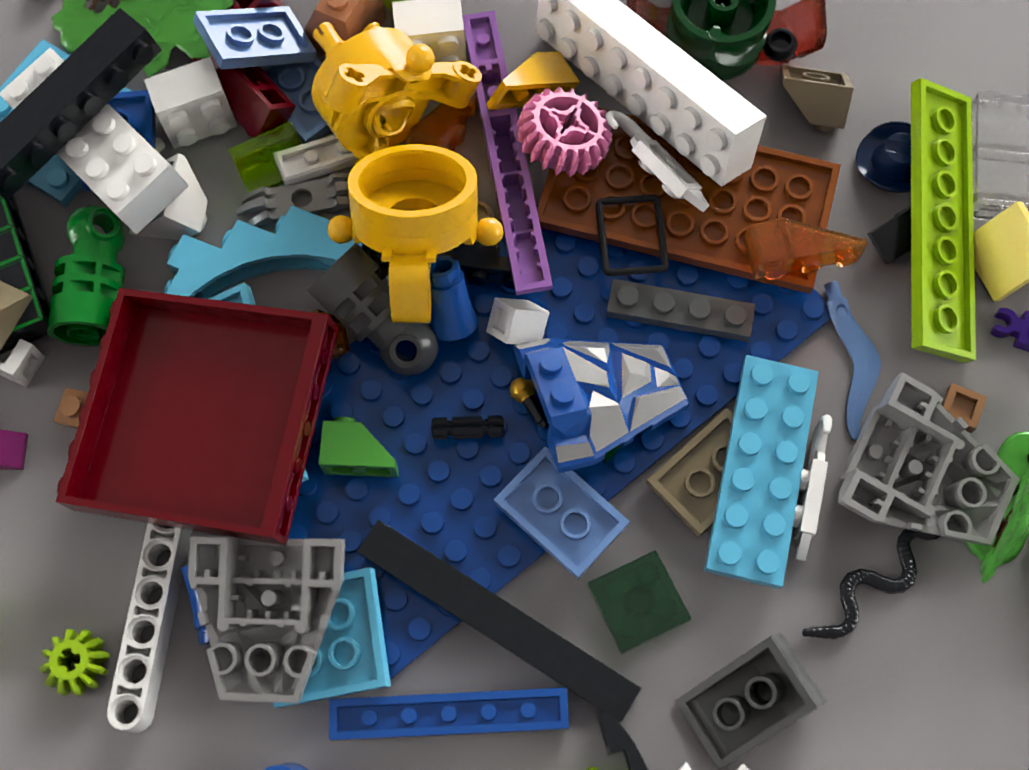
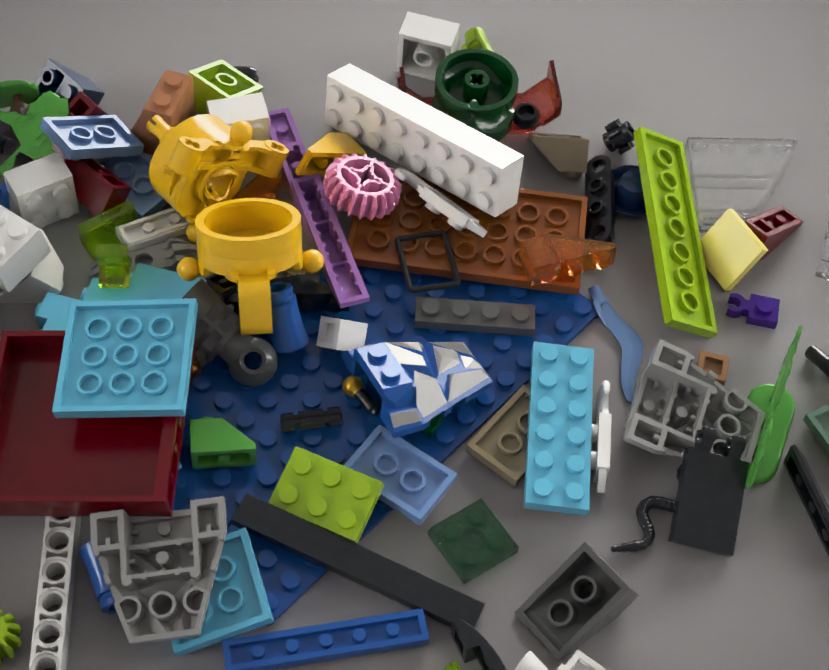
camera: 15 degrees left, 15 degrees down
(250, 347) = (126, 358): none -> medium azure plate
(260, 212) = (114, 265): none -> clear neon green slope
(471, 531) = (327, 494): none -> lime plate
(857, 168) = (601, 199): none -> black plate
(892, 81) = (619, 136): none -> black gear
(893, 237) = (637, 248): black slope -> none
(934, 582) = (710, 495): none -> black tile

